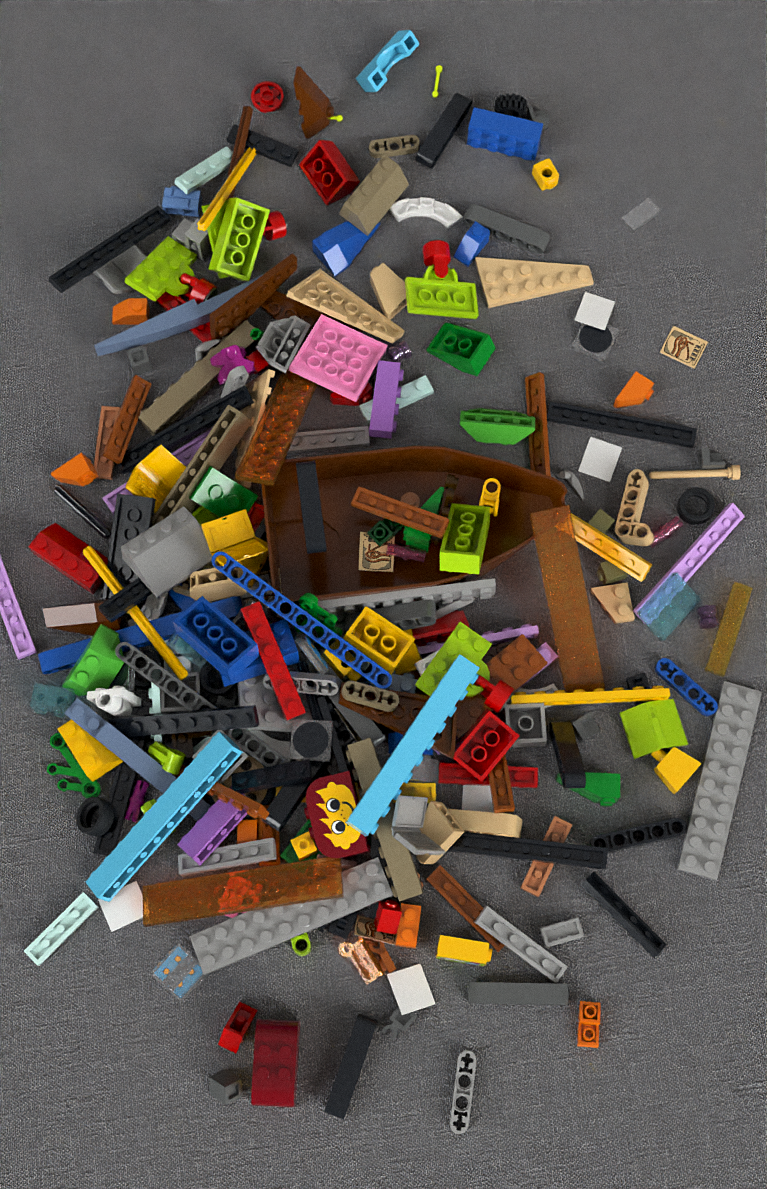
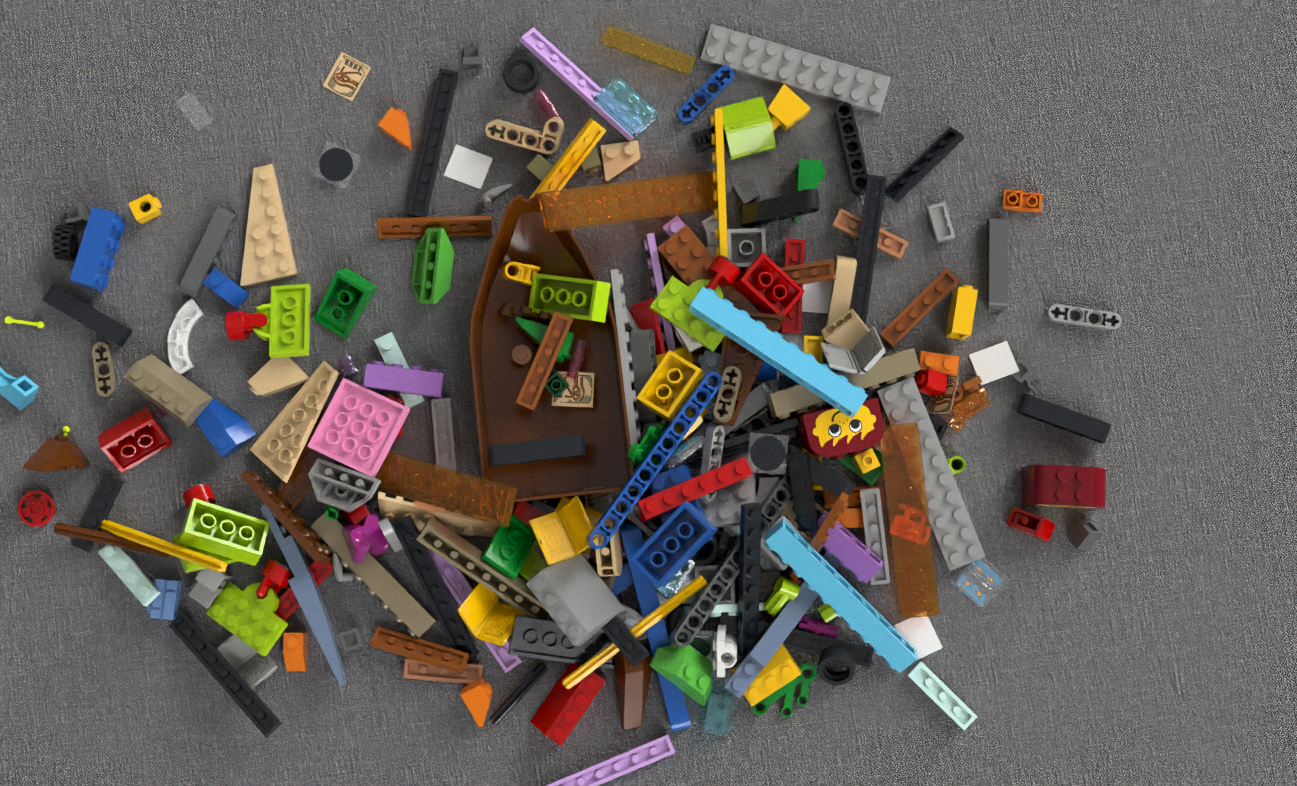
camera: 95 degrees left, 10 degrees up
(520, 944) = (954, 260): light grey plate -> none
(594, 311) = (305, 164): white sticker -> none
(708, 616) = (632, 69): clear purple wheel -> none
(731, 472) = (486, 36): tan piece -> none

